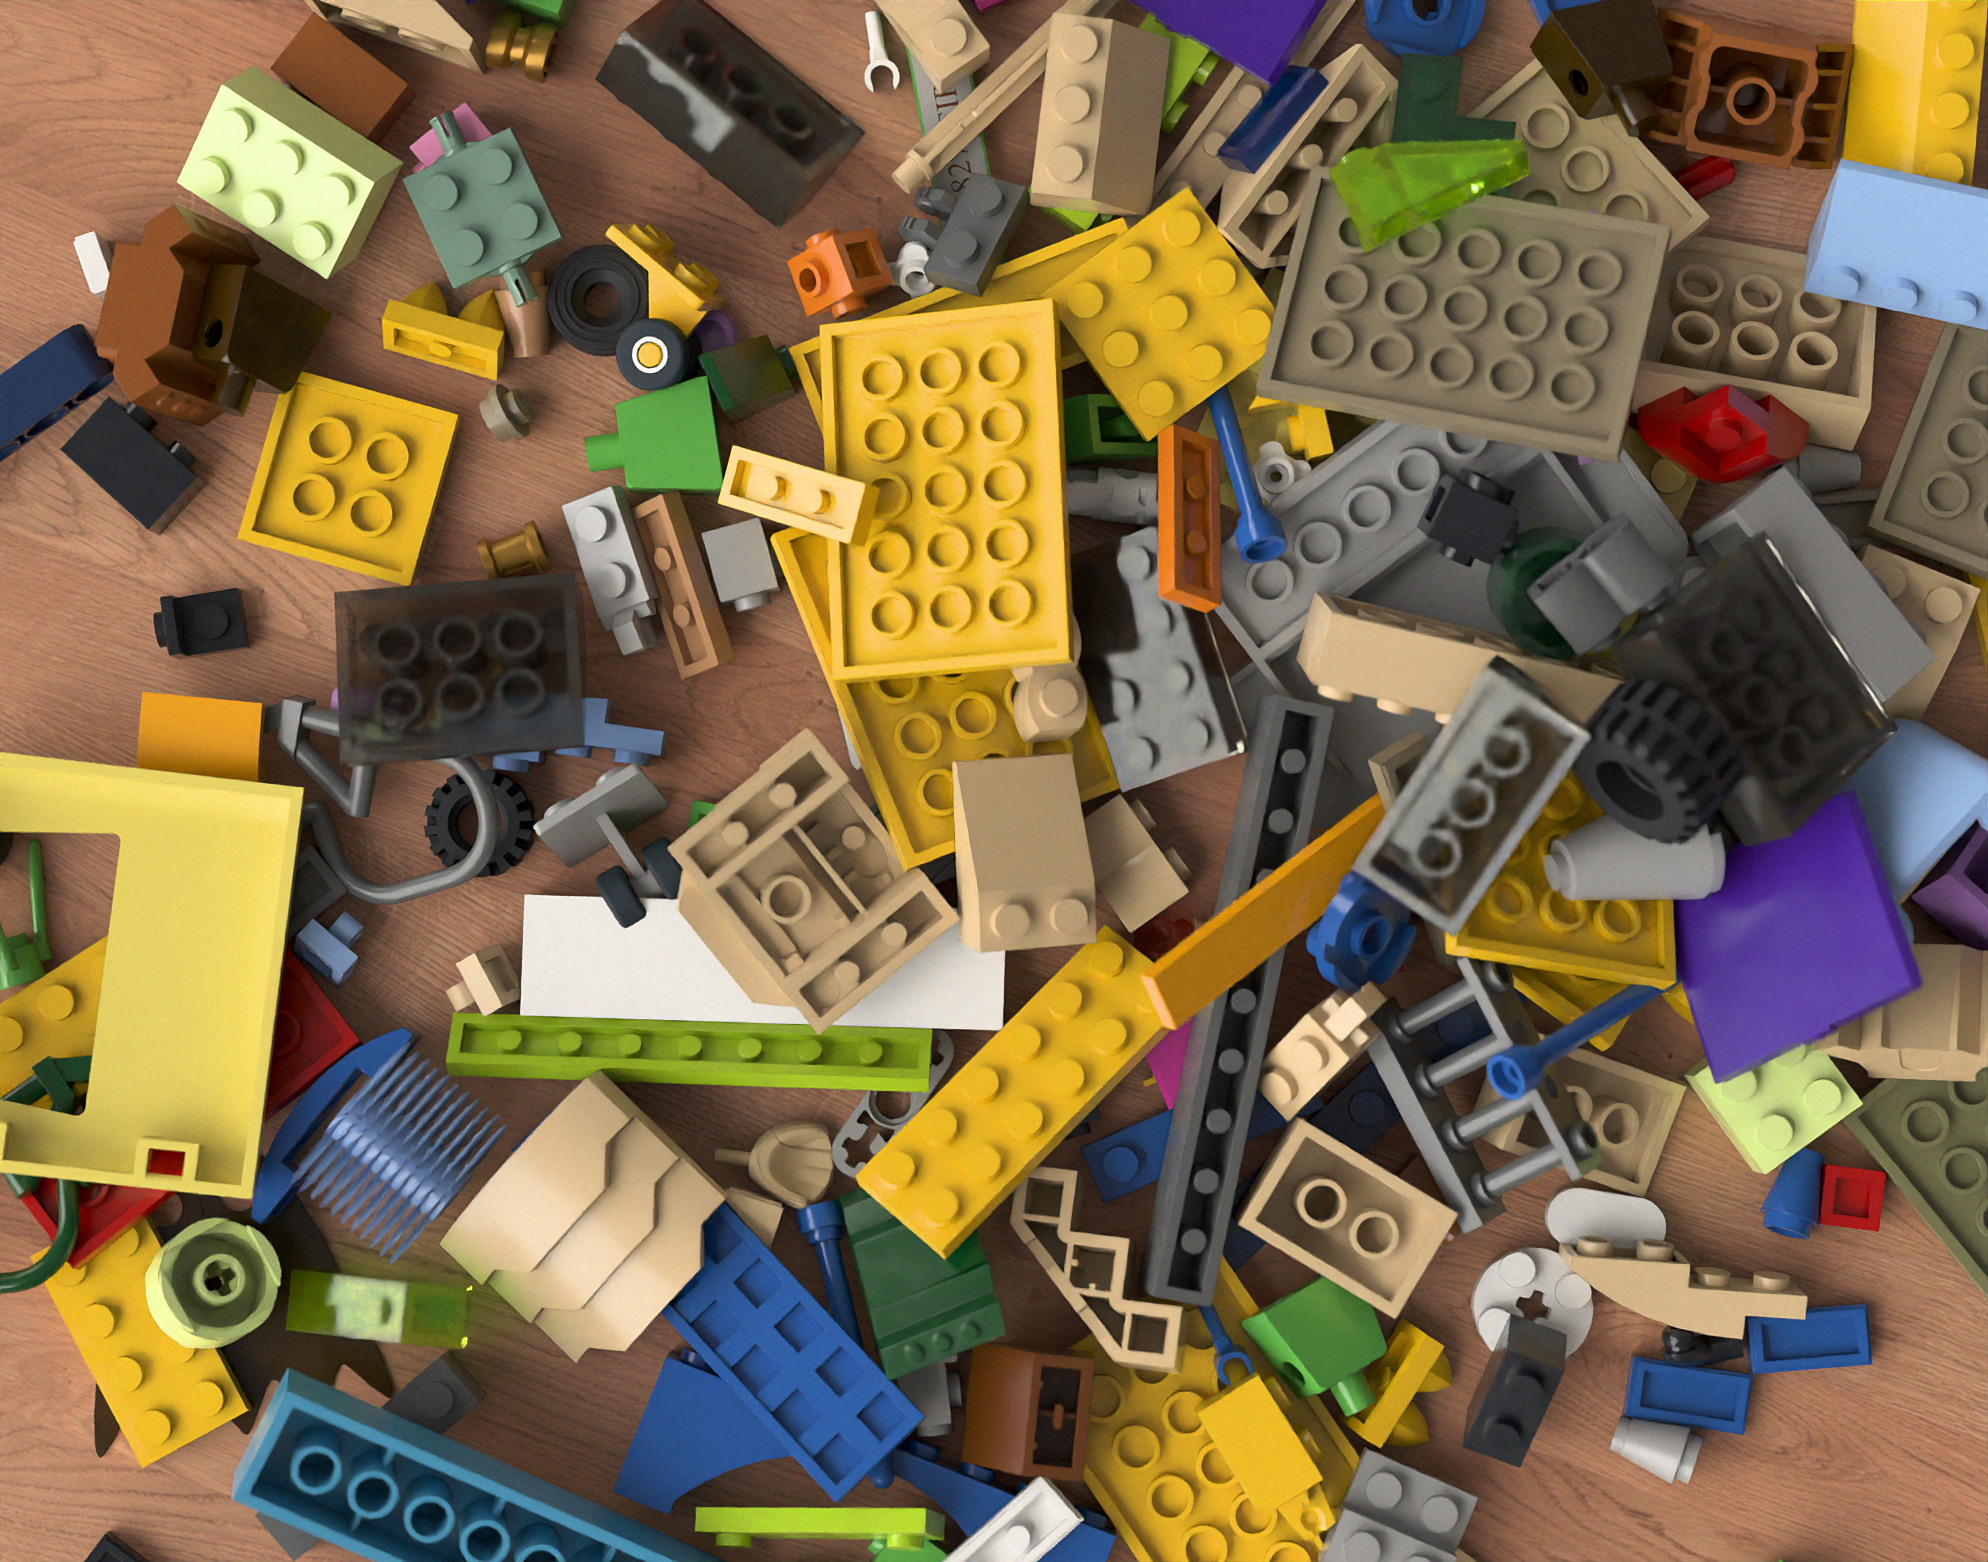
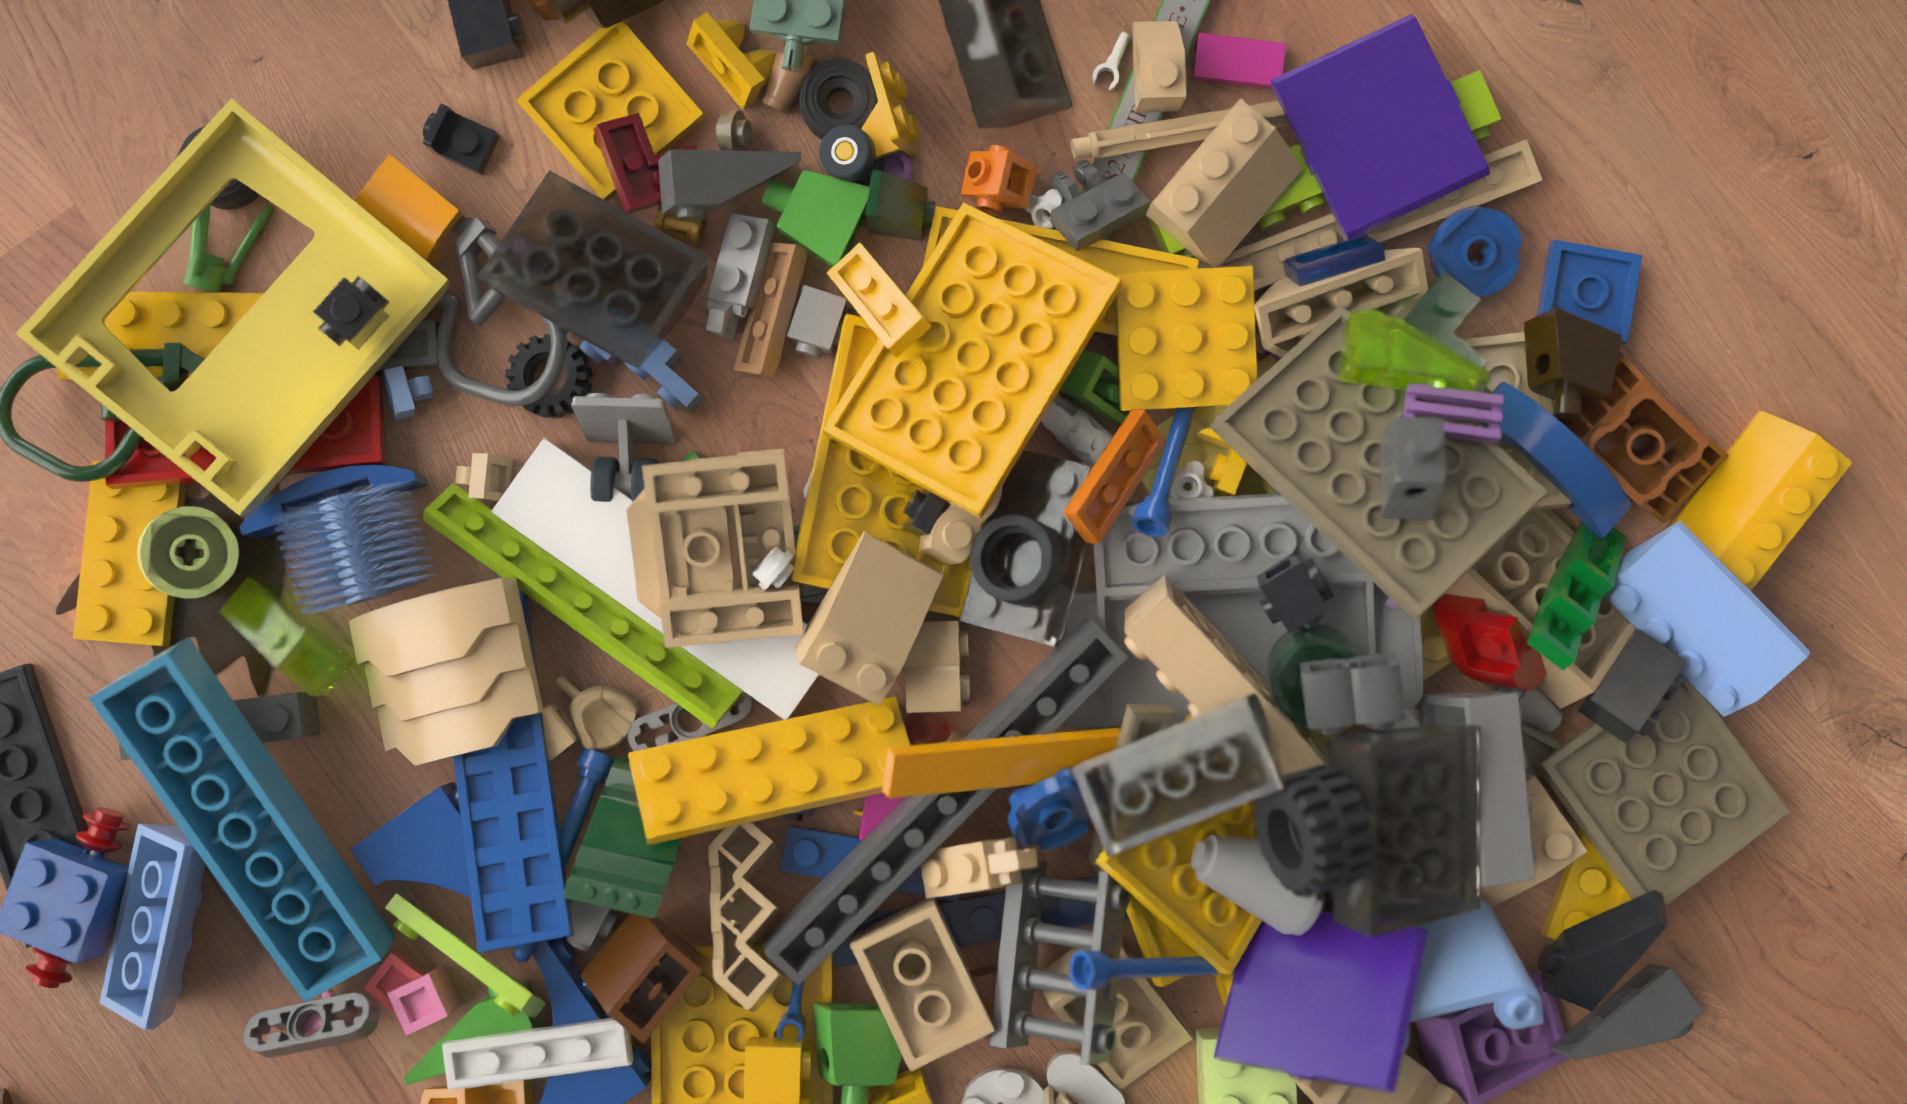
camera: 30 degrees right, 0 degrees up
(228, 892) = (352, 312): none -> black brick
(437, 530) = (631, 161): none -> dark red plate
(518, 488) = (706, 179): none -> dark grey slope
(881, 868) = (774, 568): none -> white plate
(1002, 698) = (922, 511): none -> black plate
(1097, 687) = (985, 547): none -> black tyre
(1499, 292) = (1411, 457): none -> dark grey torso
(1503, 188) = (1459, 398): none -> medium lavender tile
(1660, 174) = (1562, 460): none -> blue slope
(1780, 307) = (1575, 594): none -> green slope
(1911, 374) = (1634, 687): none -> black brick

